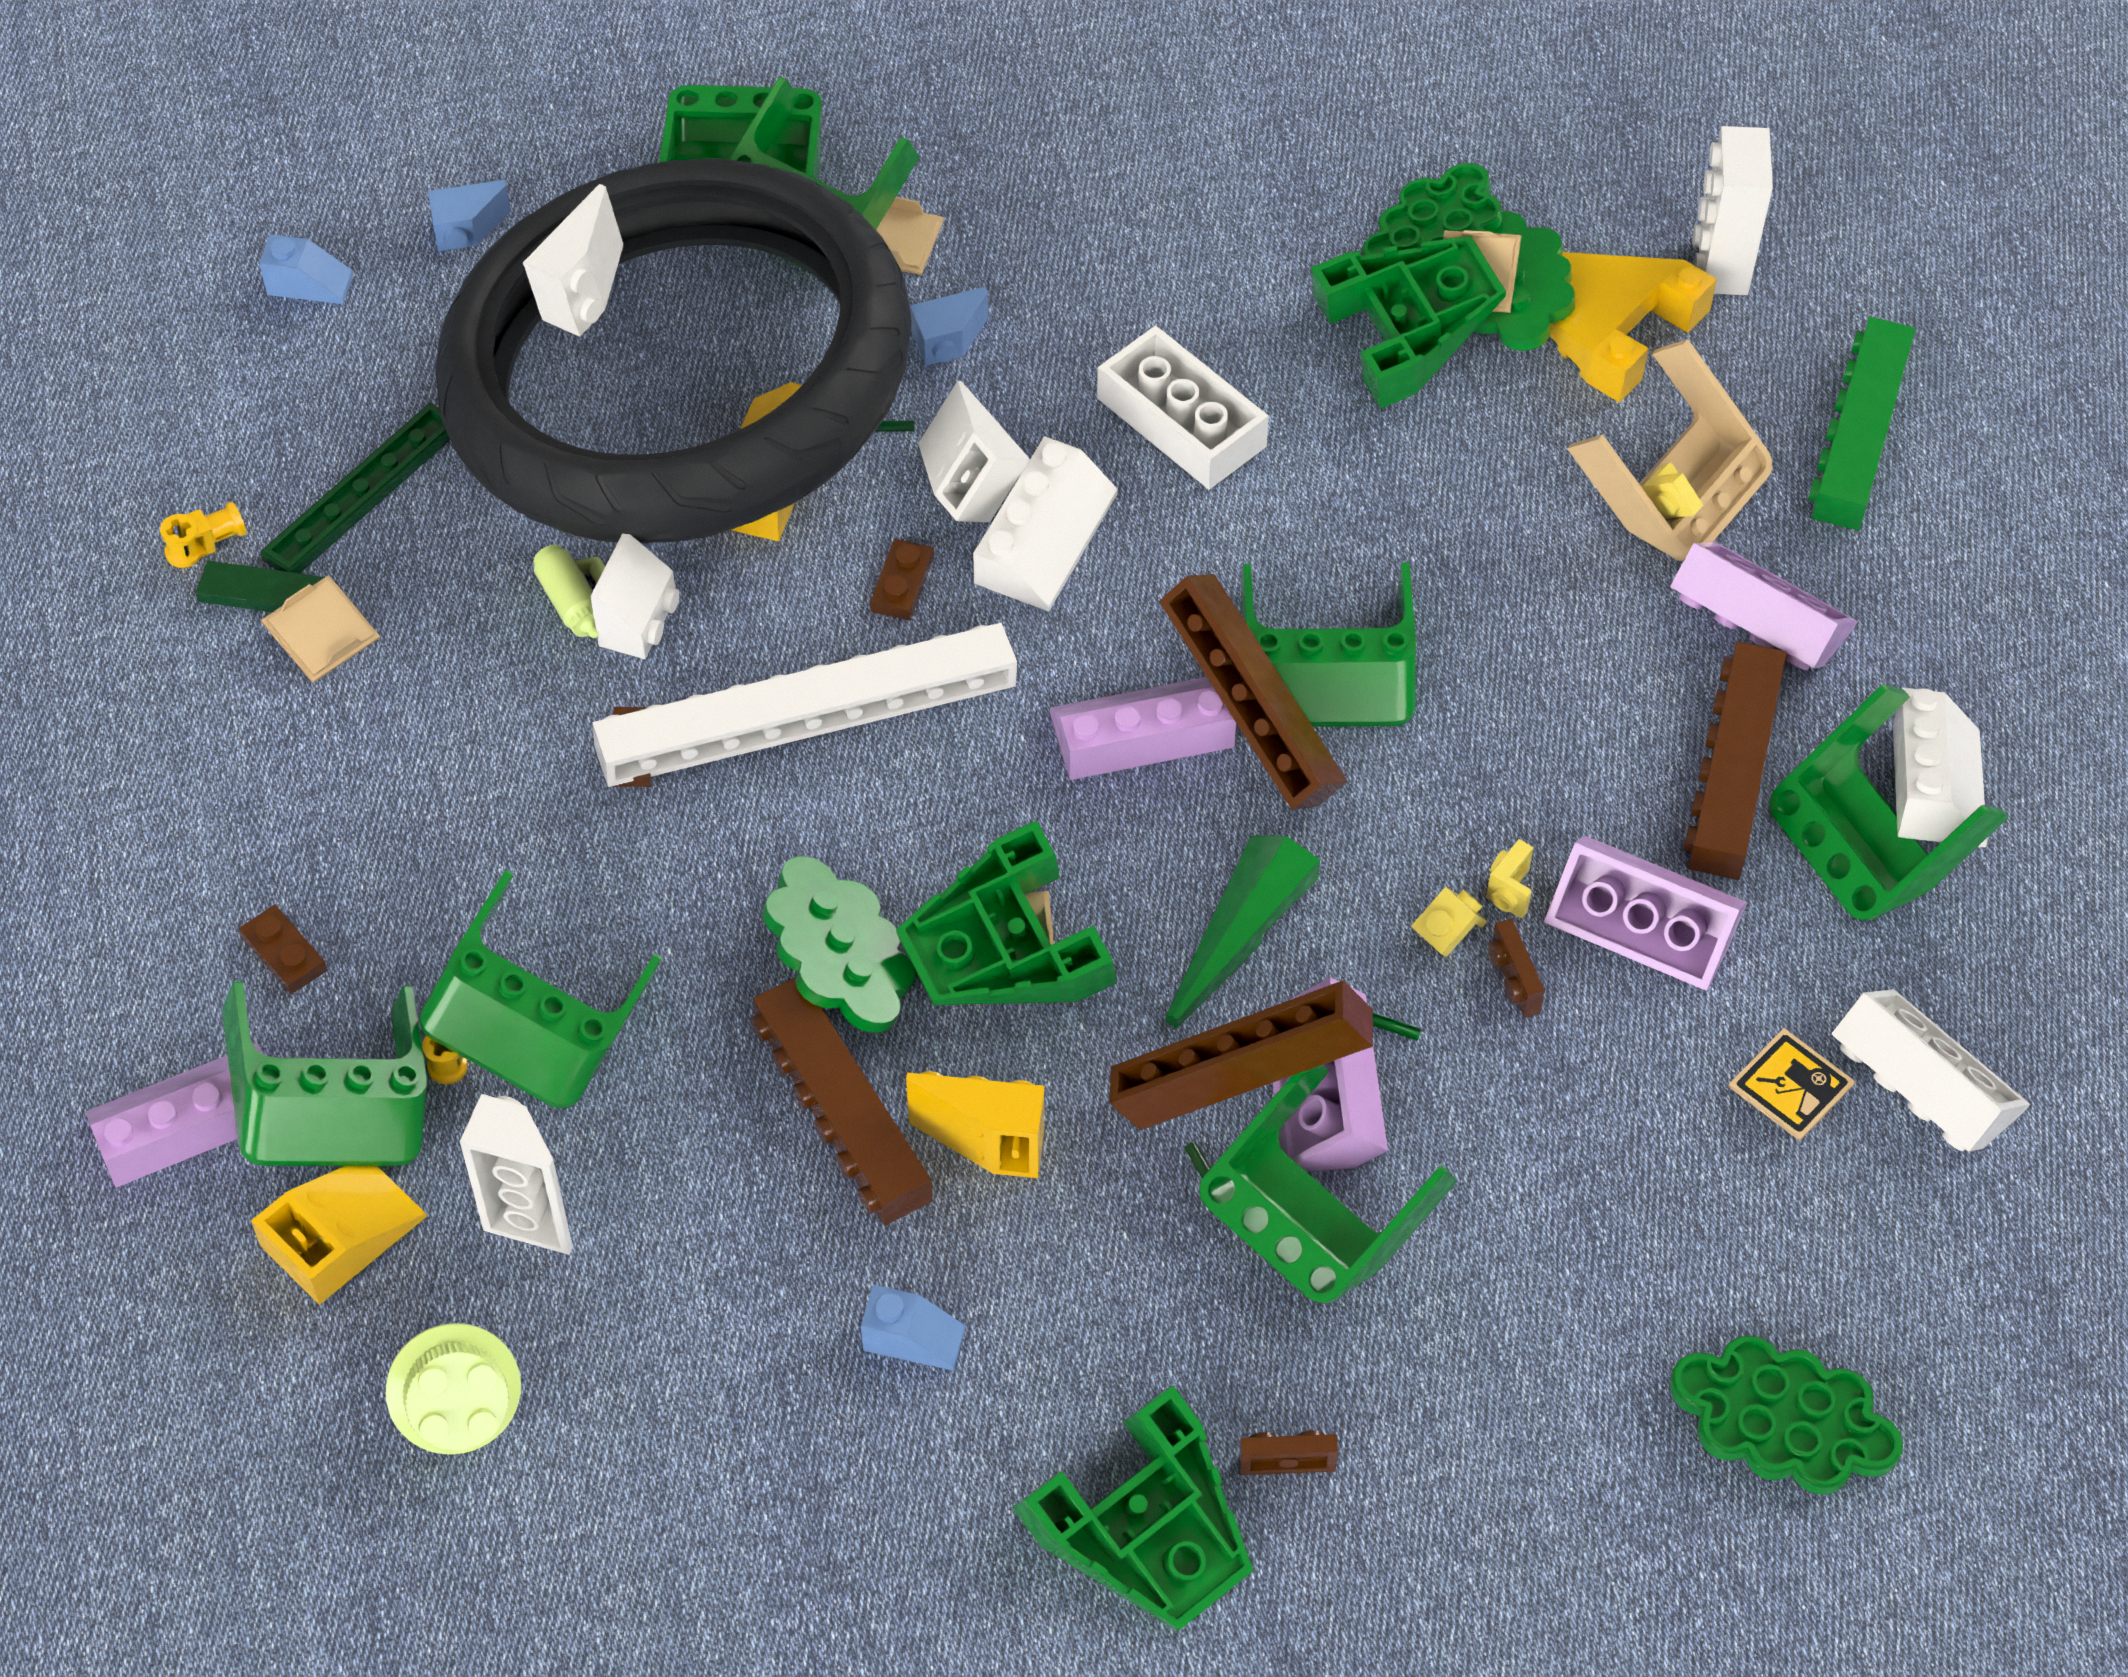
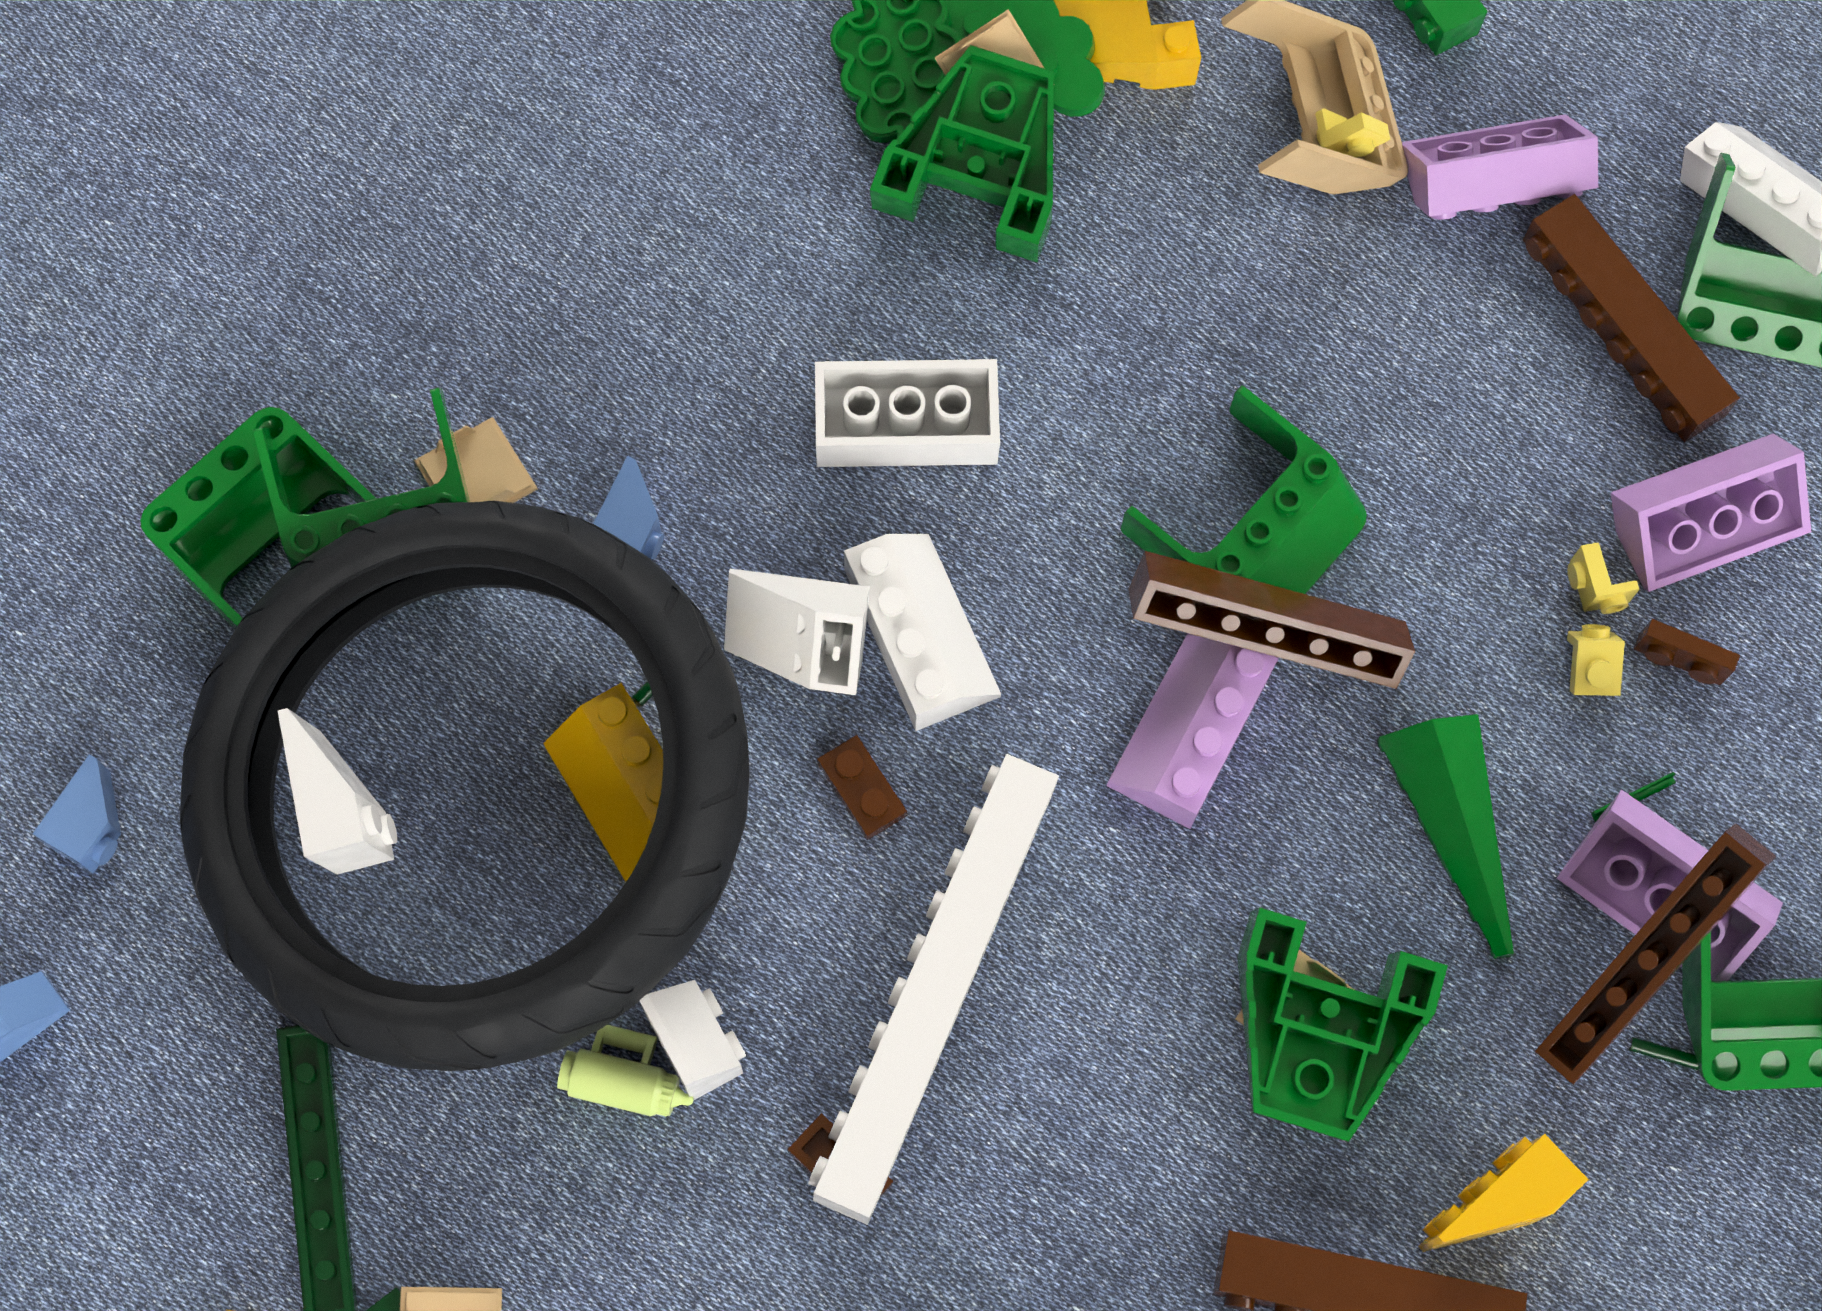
camera: 50 degrees left, 15 degrees up
(838, 944) = (1216, 1168): plate -> none

